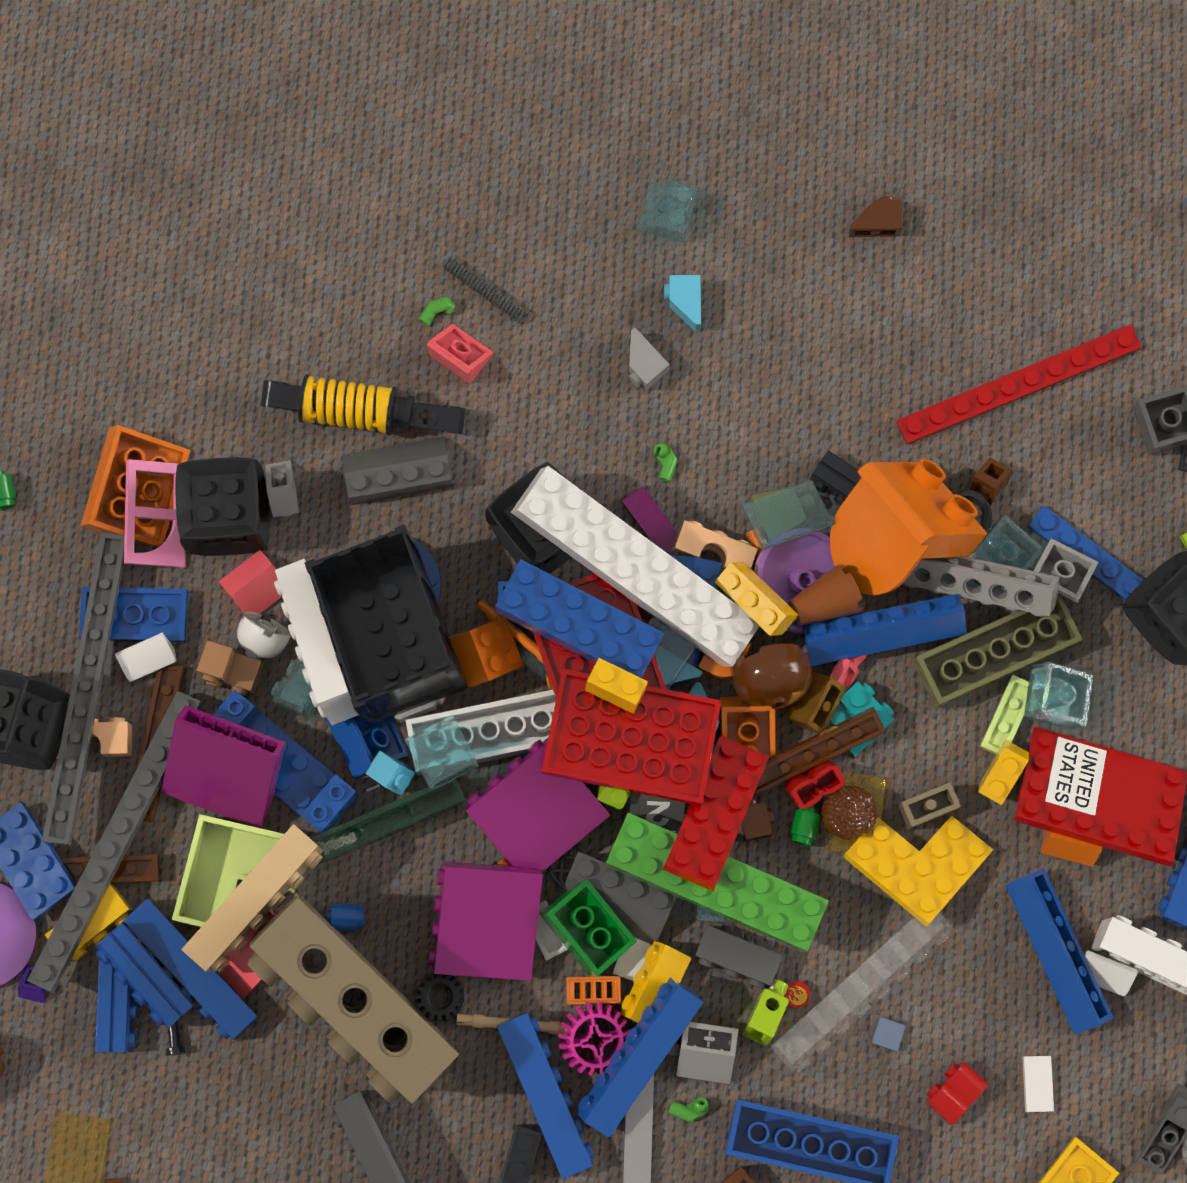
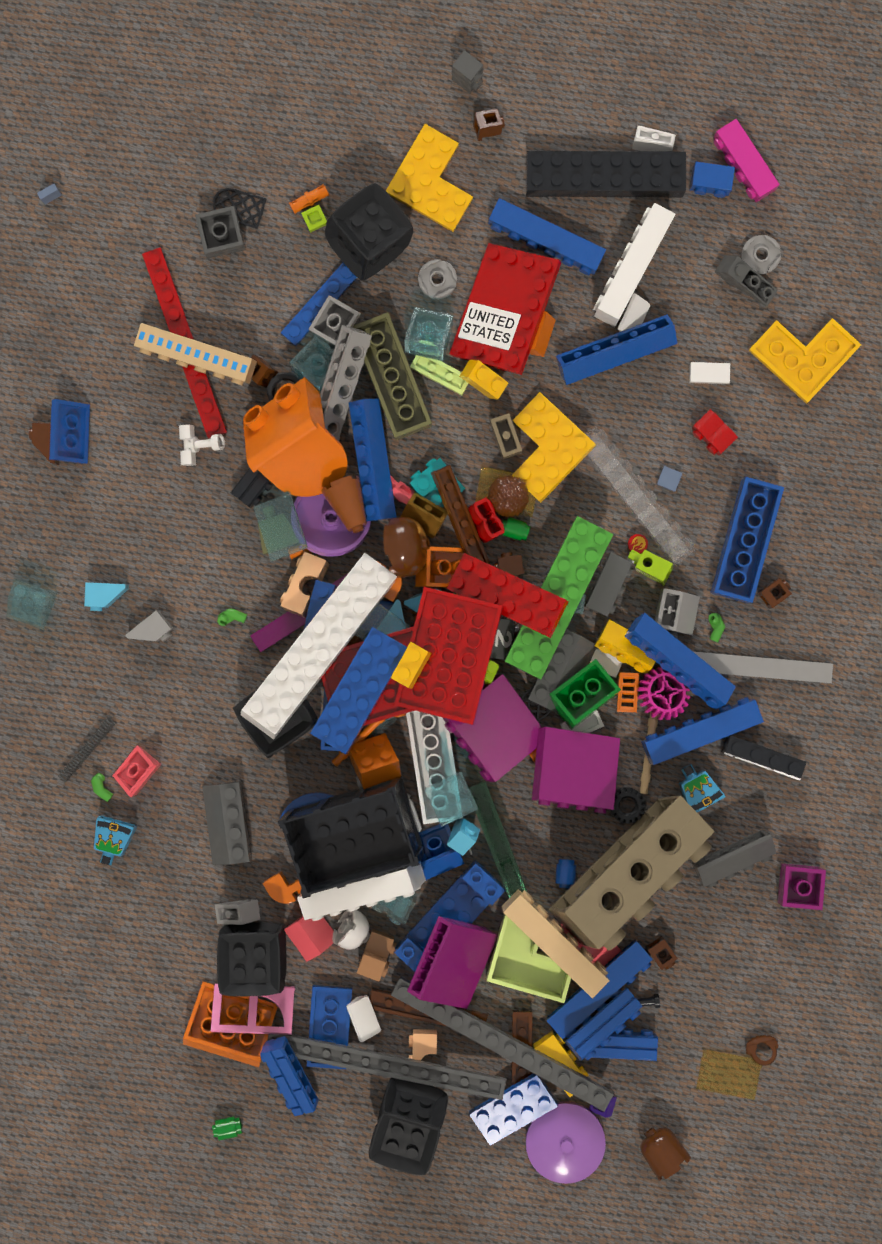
camera: 85 degrees left, 10 degrees up
(69, 563) = (289, 1076): none -> blue brick
(228, 1054) = (668, 959): none -> reddish brown brick
(313, 540) = (280, 889): none -> orange brick
(359, 408) = (177, 849): piece -> none
(373, 326) = (112, 837): none -> torso
(465, 1094) = (699, 789): none -> torso
(756, 598) = (346, 555): yellow brick -> none
(887, 401) = (193, 444): none -> white bar
(893, 245) = (69, 431): none -> blue plate
(1006, 395) = (195, 353): none -> tan brick
(1118, 711) = (441, 290): none -> light grey tile

